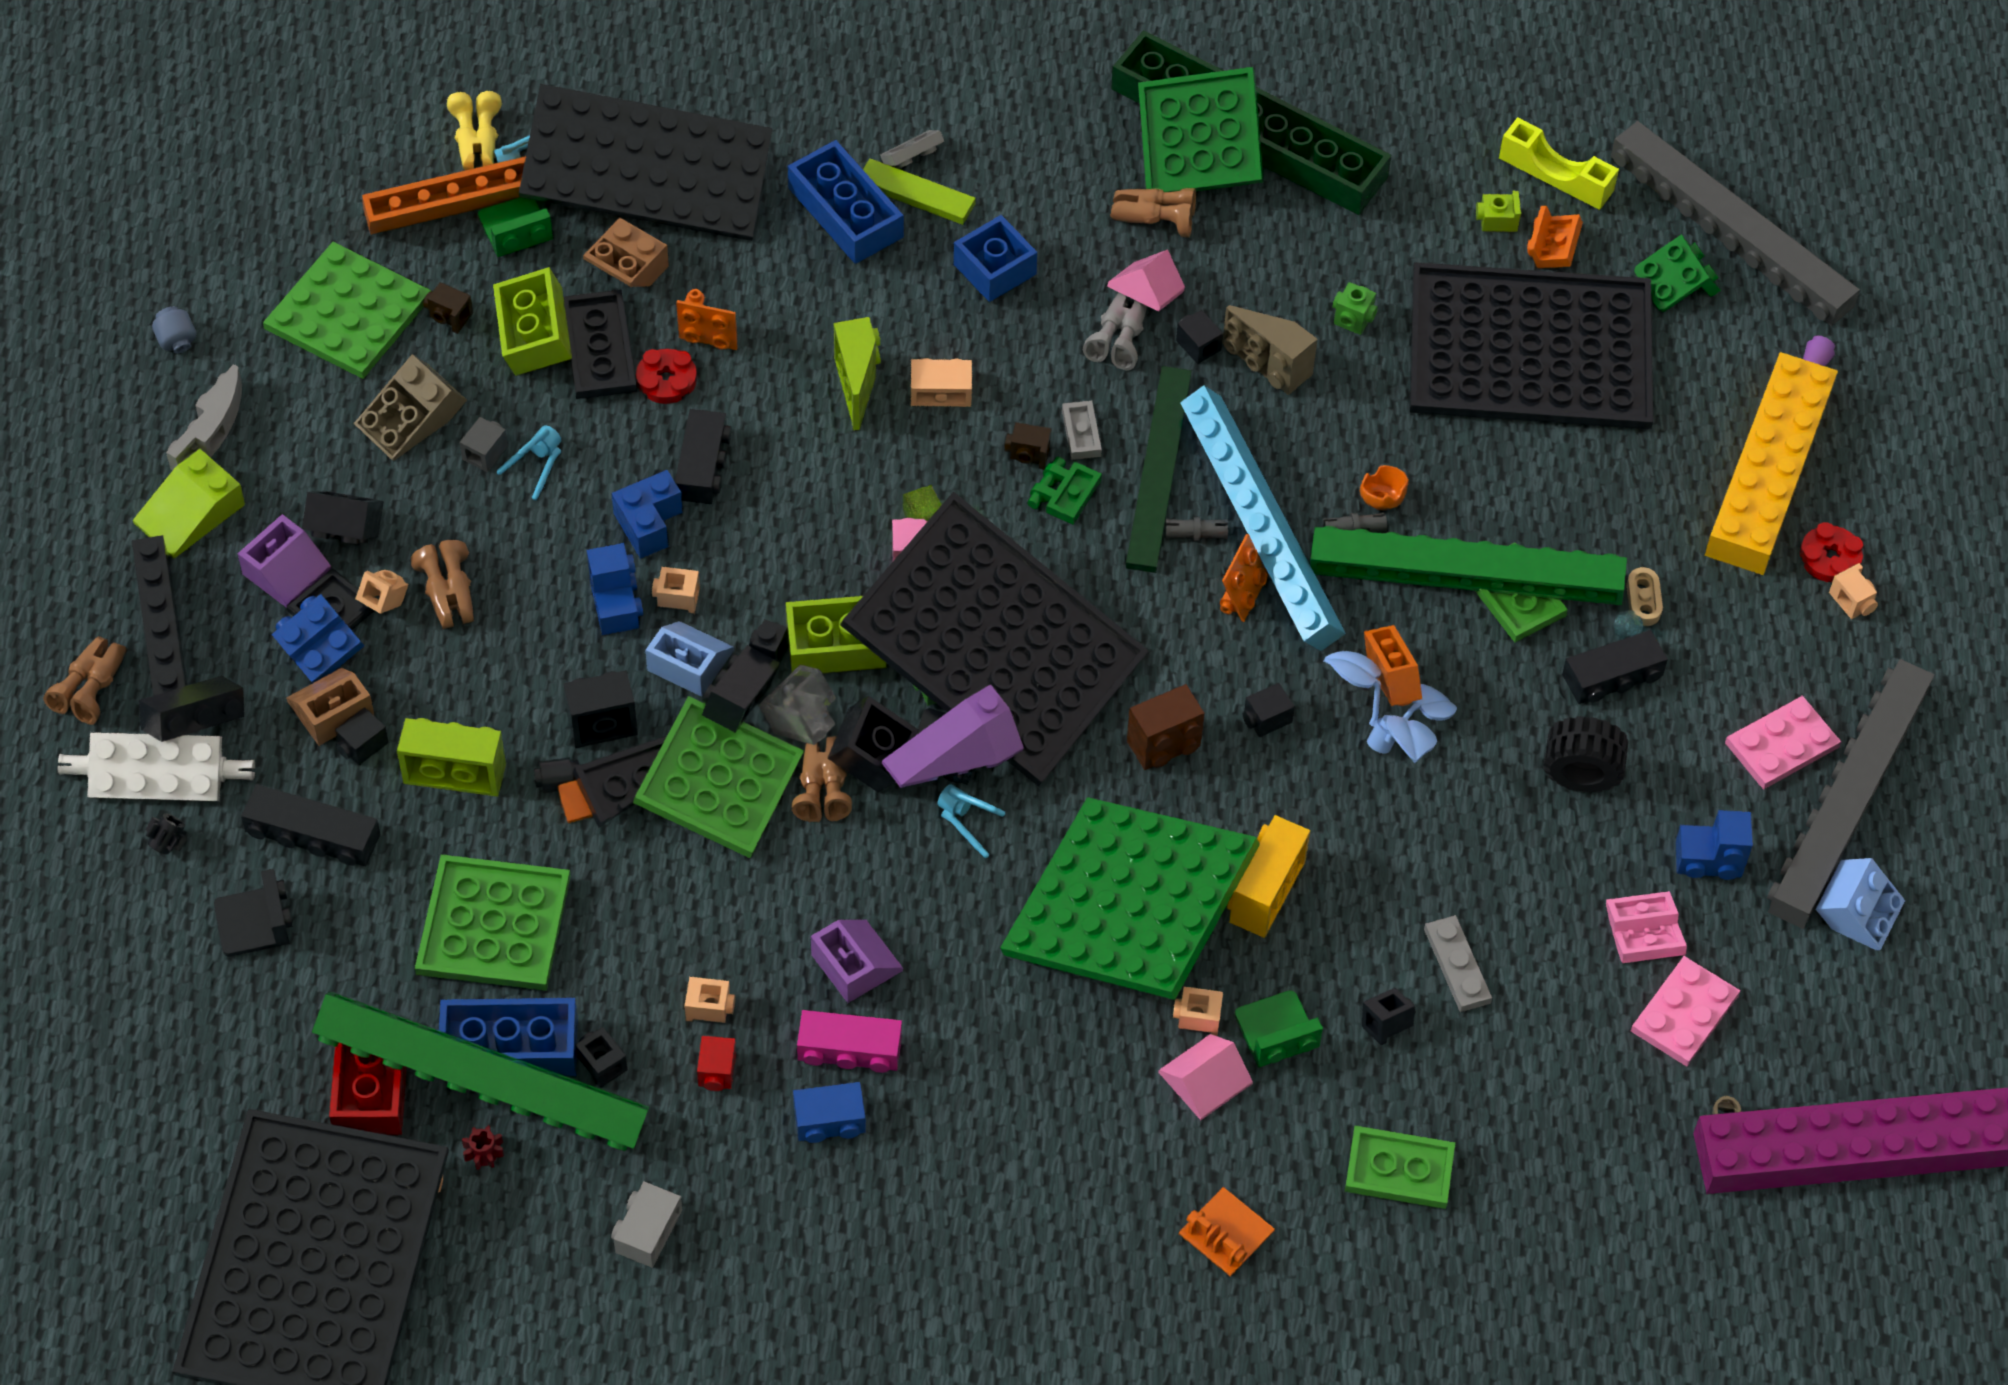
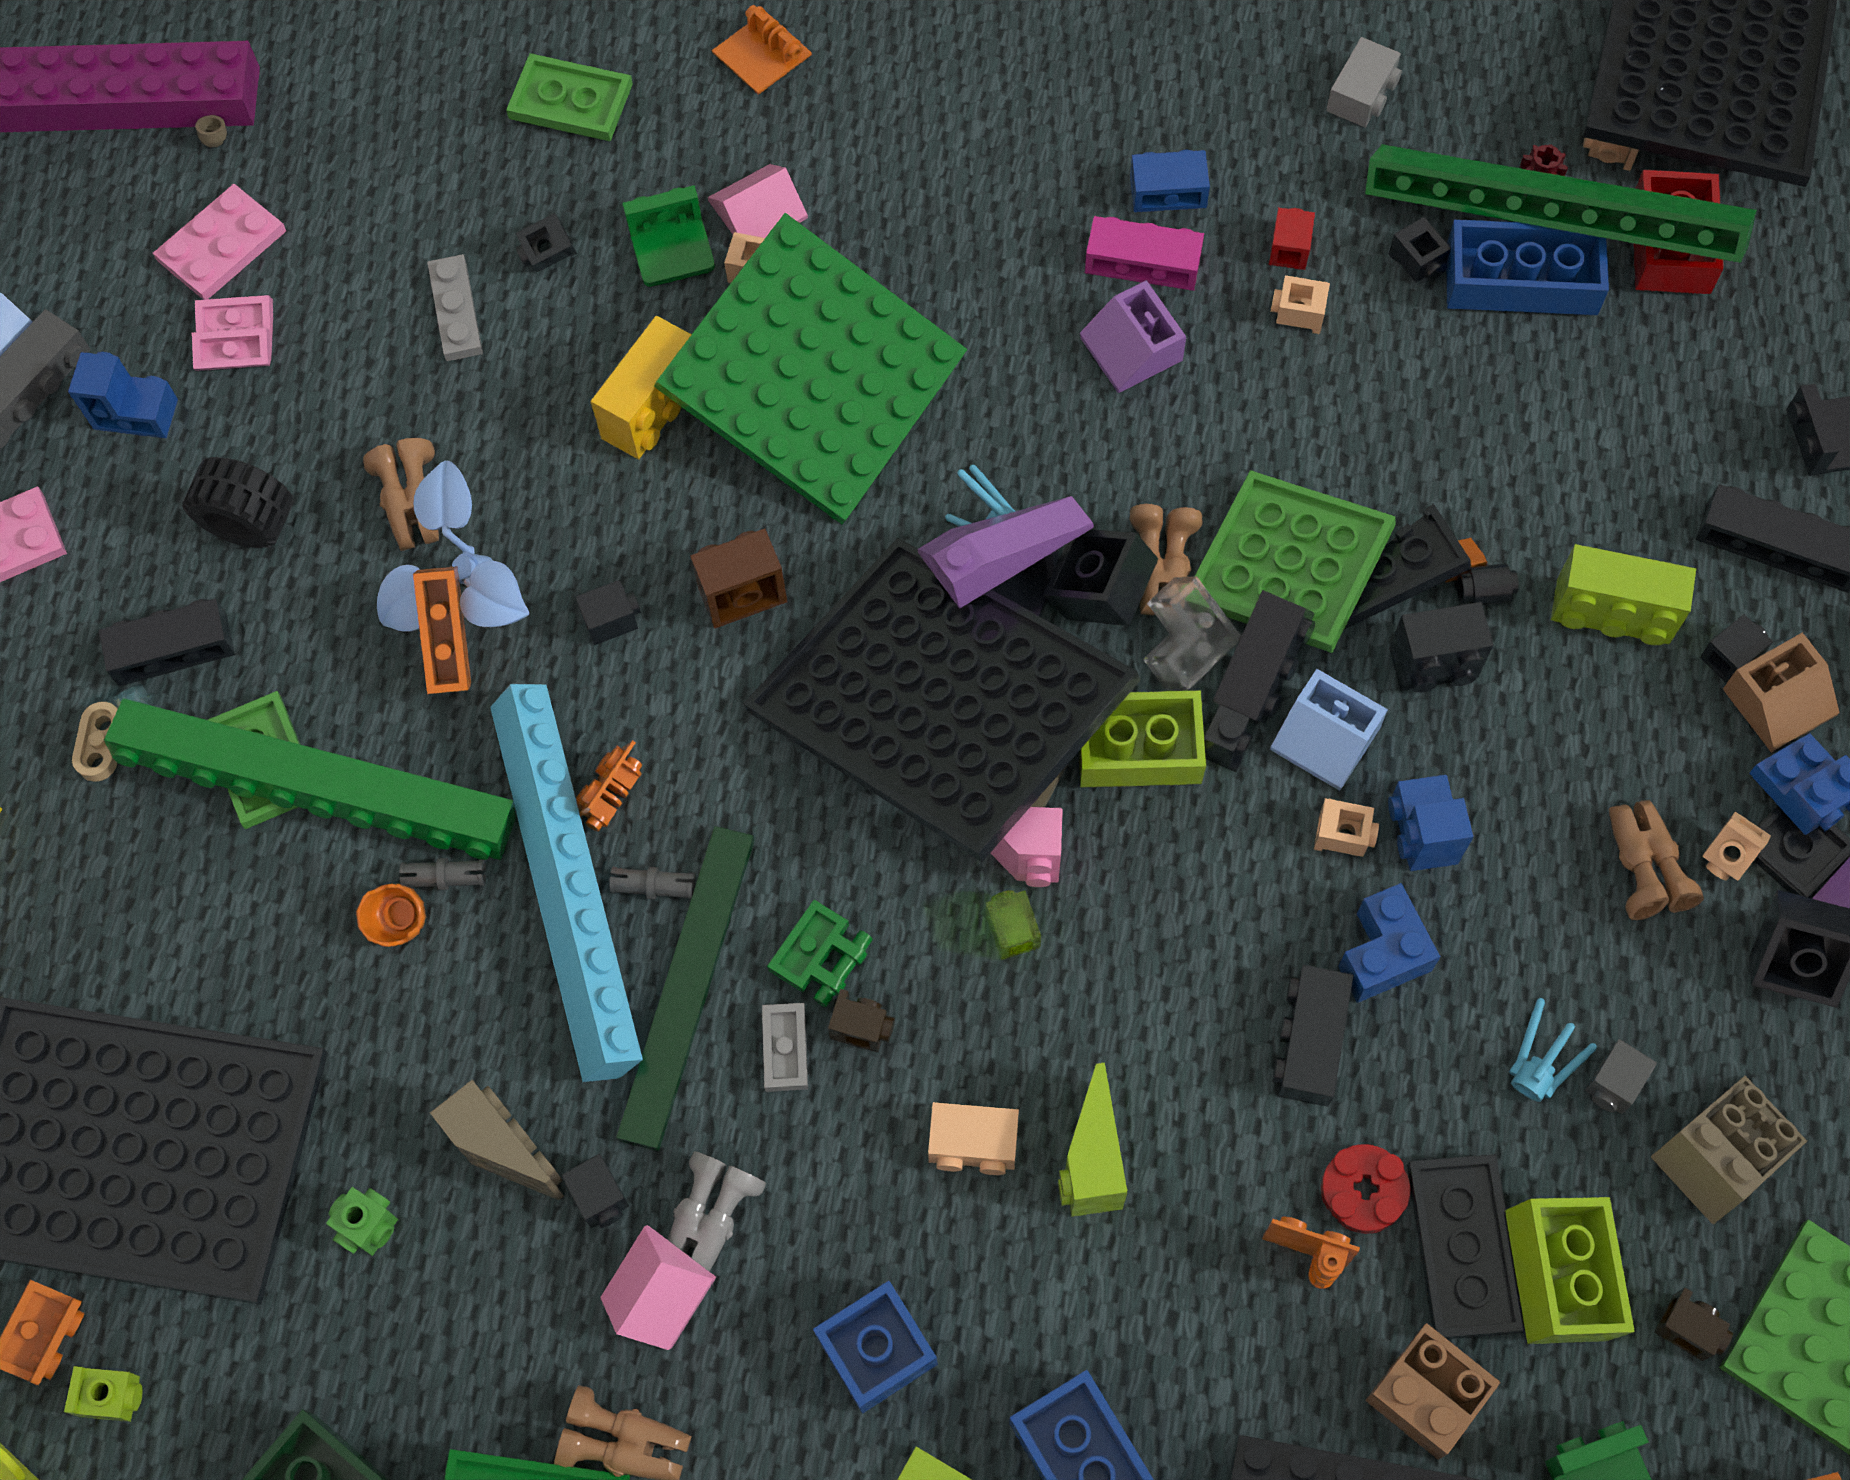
camera: 170 degrees left, 10 degrees up
(493, 922) = (1552, 413): bright green plate -> none
(1445, 785) = (393, 498): none -> medium nougat piece

